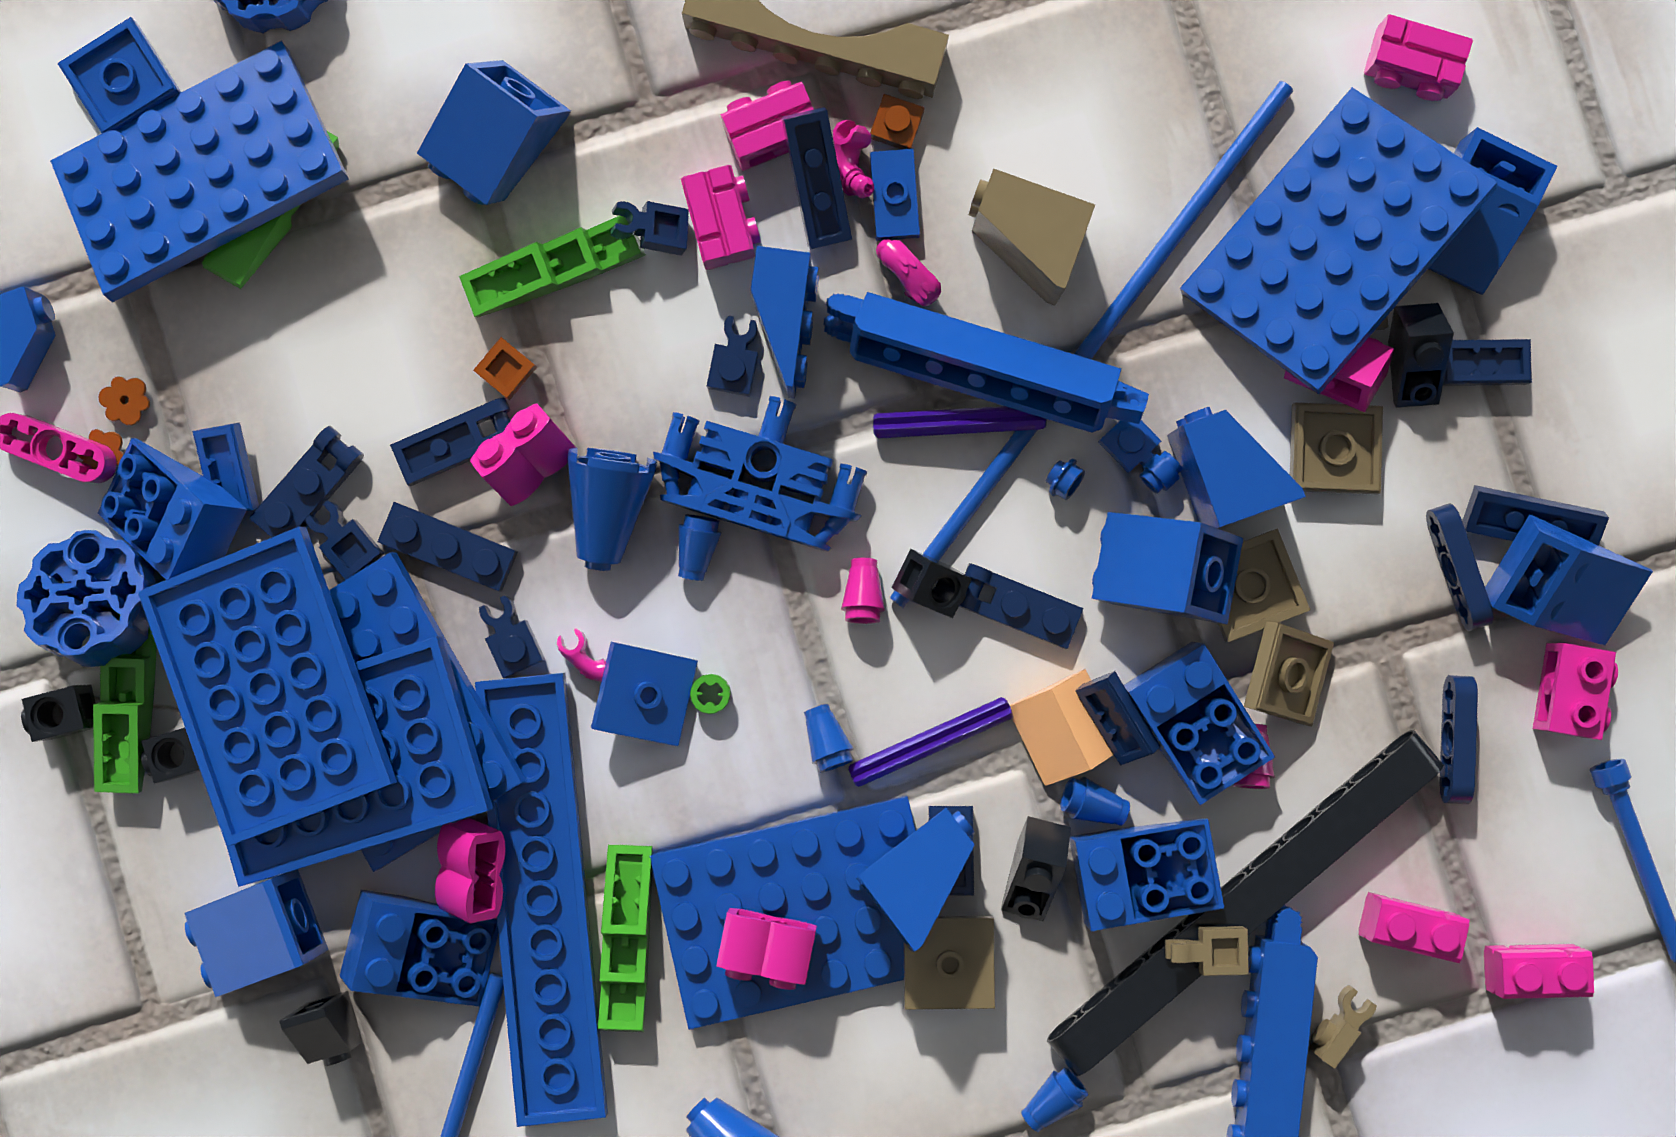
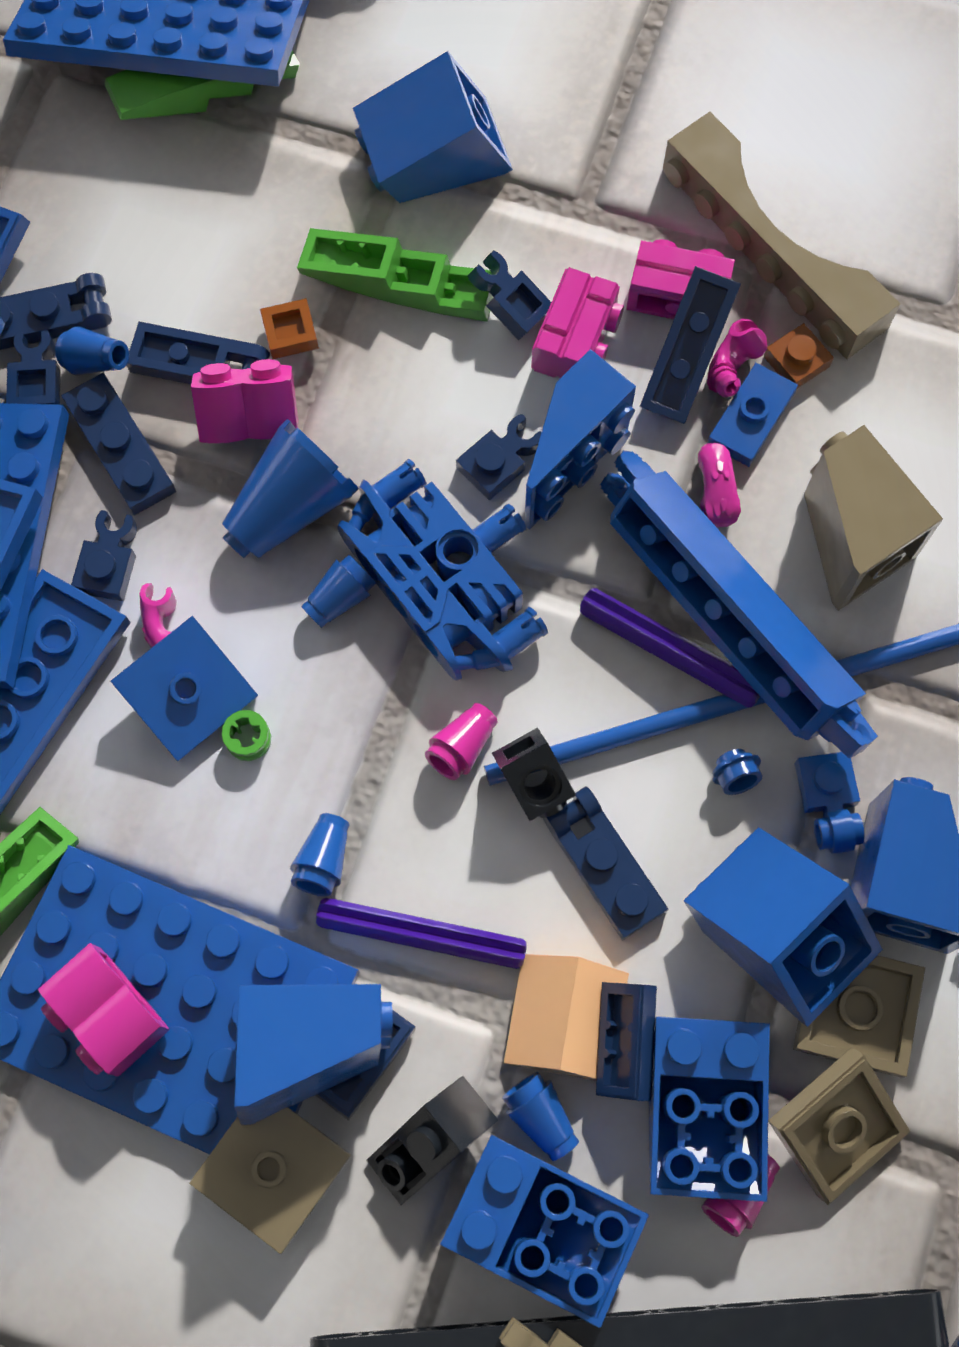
camera: 35 degrees right, 15 degrees down
(373, 494) = (89, 352): none -> blue cone

